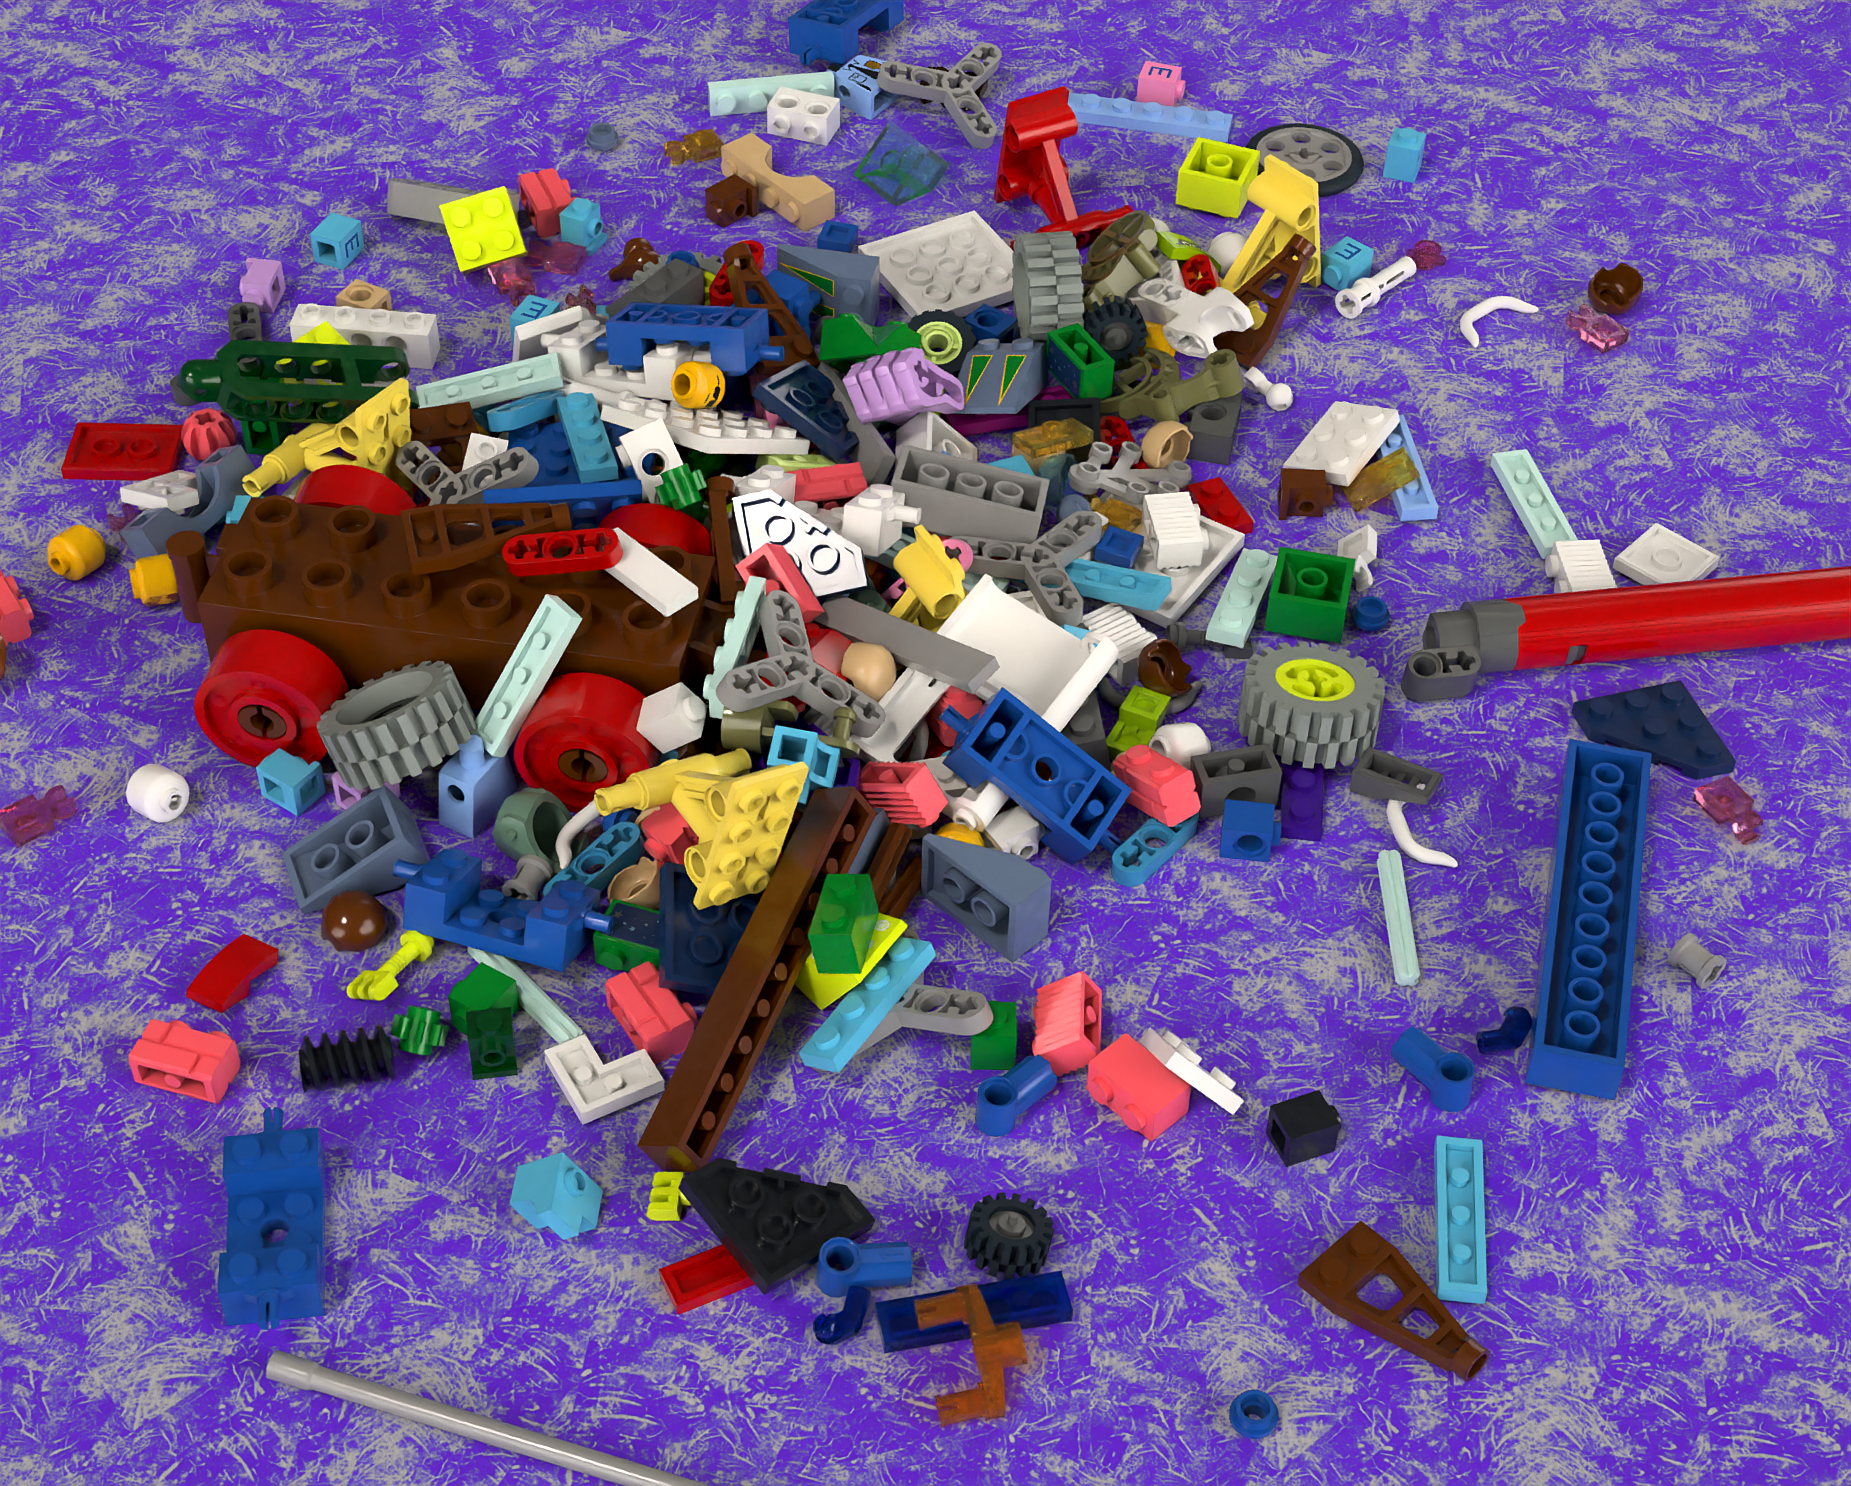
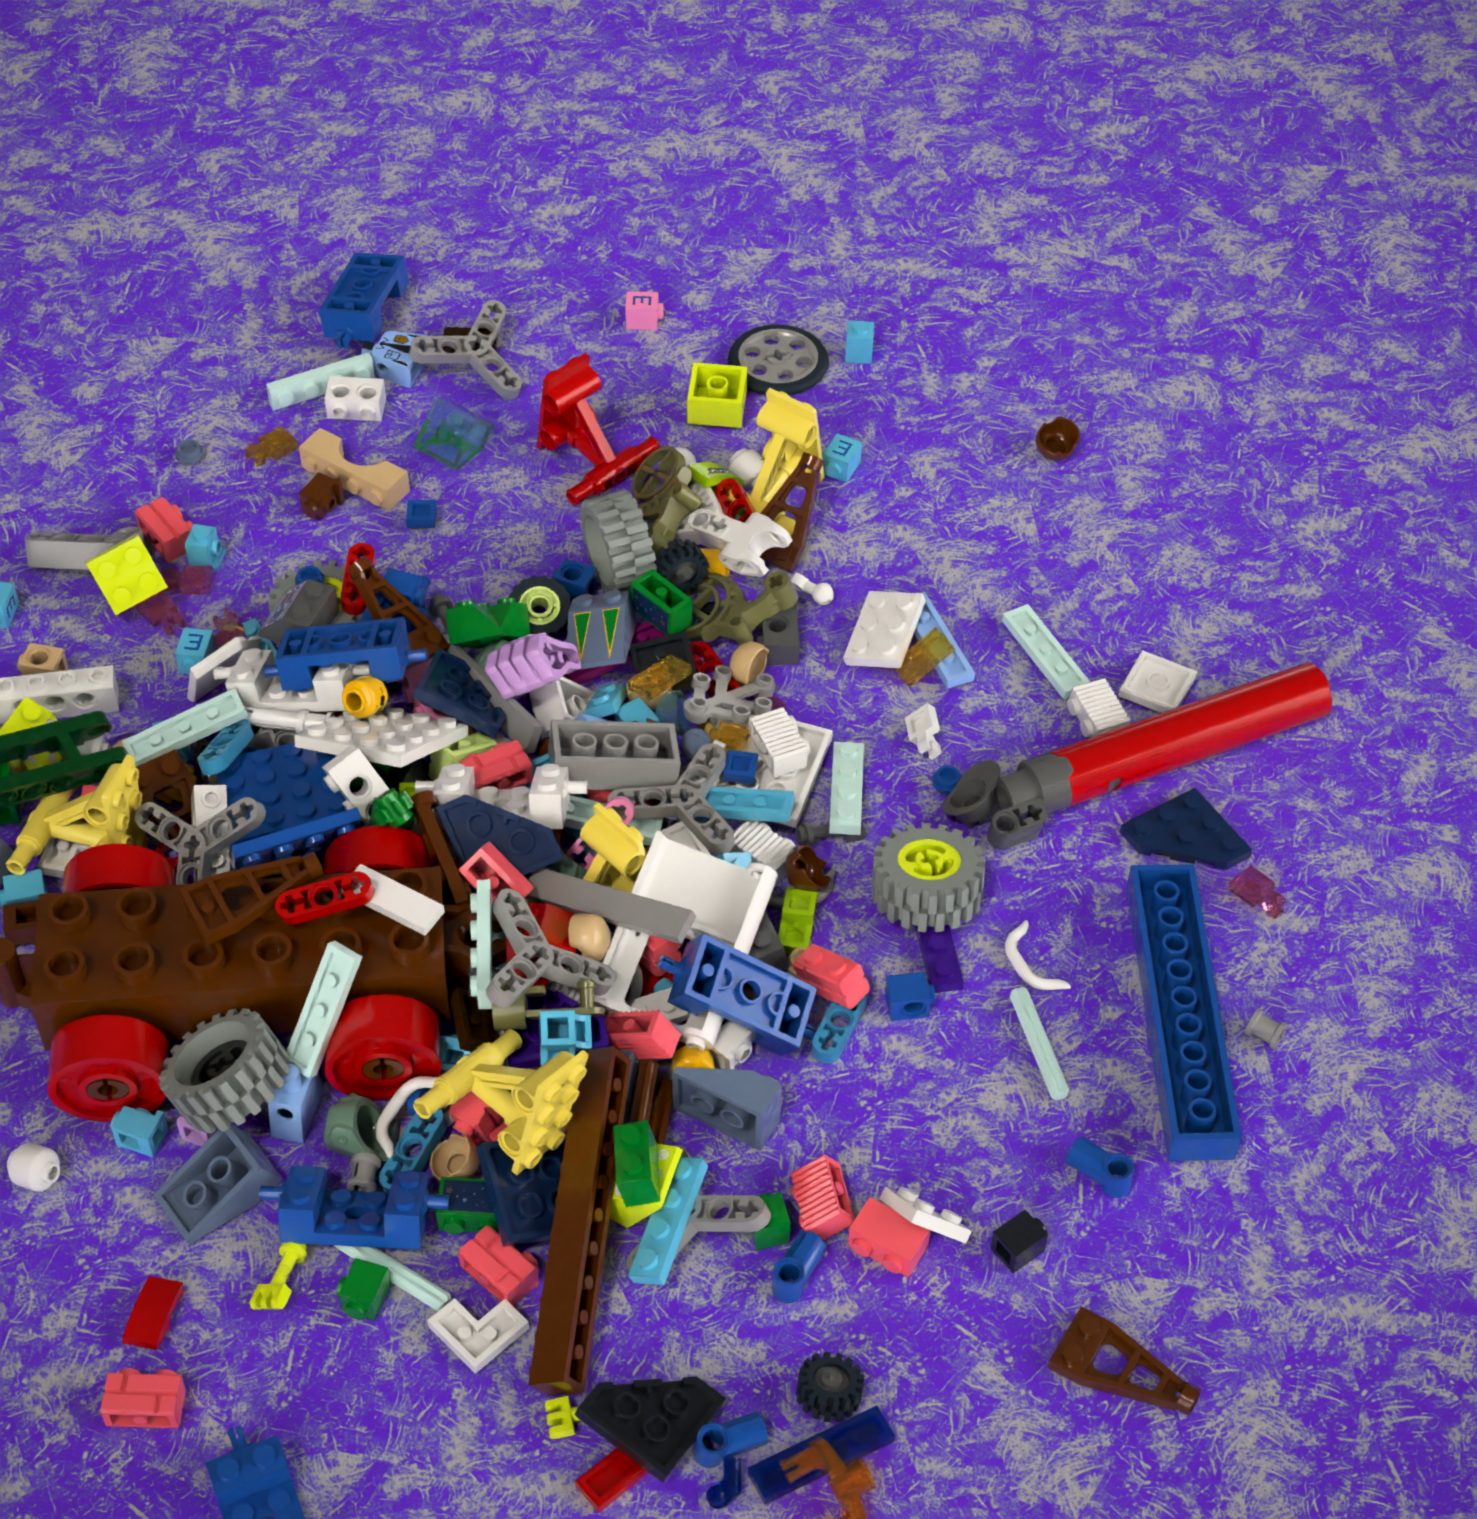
camera: 15 degrees left, 5 degrees up
(346, 1058) = (273, 1365): black piece -> none
(353, 921) = (234, 1243): reddish brown hair -> none
(419, 1030) = (323, 1327): green gear -> none
(491, 1043) = (384, 1324): dark green brick -> none
(556, 1196) = (478, 1442): medium azure brick -> none
(587, 438) = (287, 764): medium azure plate -> none
(635, 255) = (262, 572): reddish brown animal -> none
(672, 717) = (448, 1016): white brick -> none
(842, 278) = (444, 561): sand blue slope -> none
(945, 266) = (519, 526): white plate -> none
(985, 450) = (606, 699): none -> medium azure plate
(1151, 117) = (631, 342): light blue plate -> none
(1180, 742) = (838, 934): white head -> none
(1220, 505) = (804, 705): red plate -> none
(1235, 775) = (889, 954): dark grey brick -> none
(1255, 1403) = (1047, 1473): blue plate -> none
(1303, 493) = (866, 681): reddish brown brick -> none
(1309, 594) = (899, 776): green slope -> none
(1367, 291) = (865, 479): white pin -> none
(1383, 777) = (1001, 915): dark grey slope -> none
(1396, 632) = (972, 795): none -> dark grey piece
(1426, 255) = (901, 434): clear pink plate -> none
(1460, 1220) = (1151, 1287): medium azure plate -> none
(1486, 307) = (959, 474): white animal -> none
(1509, 1035) = (1147, 1123): clear blue arm -> none
(1600, 332) = (1054, 479): clear pink plate -> none

